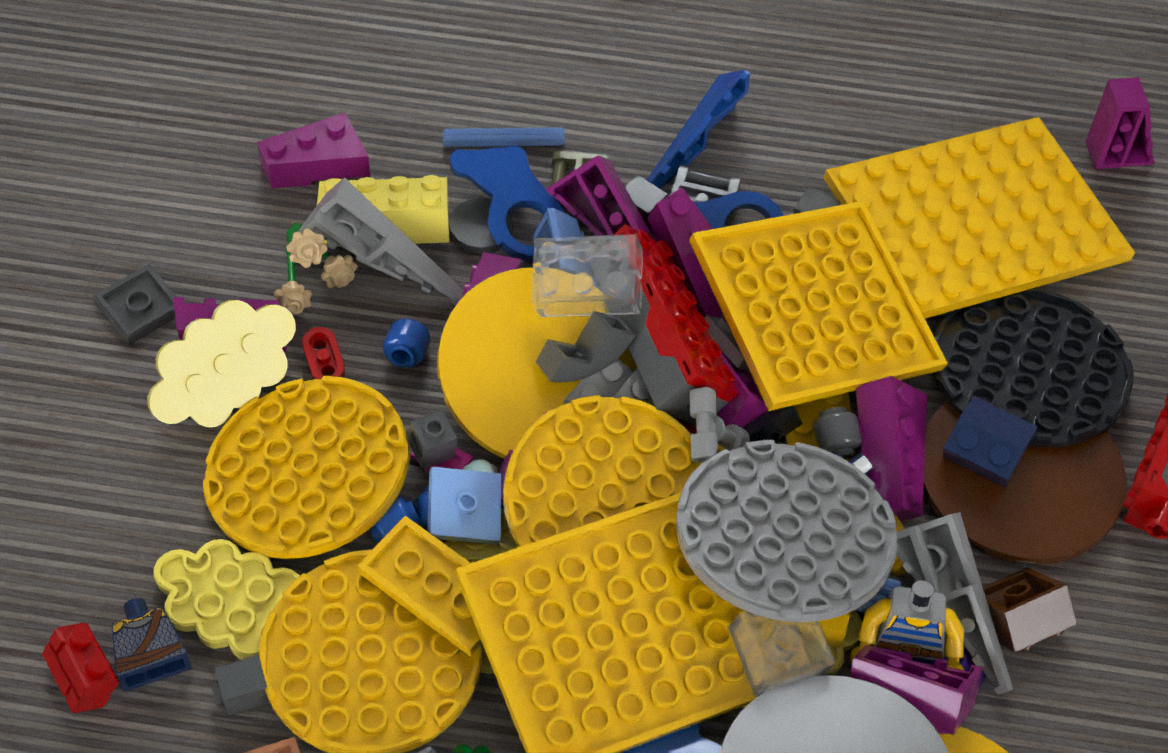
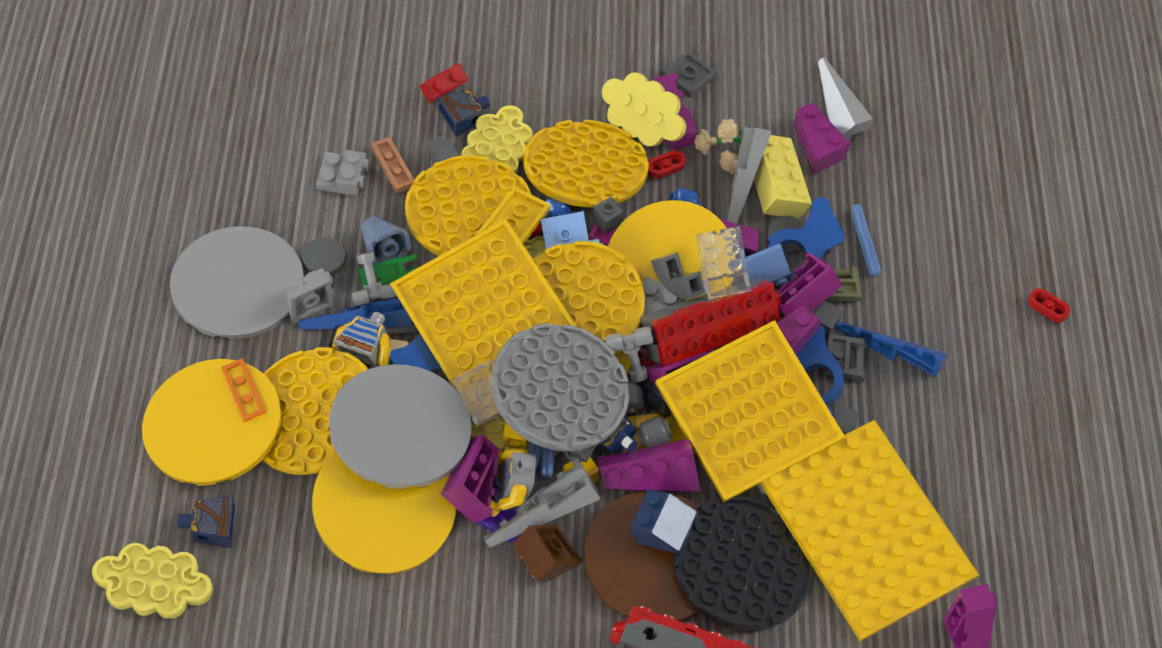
camera: 80 degrees right, 0 degrees up
(246, 117) = (841, 104): none -> light grey wedge

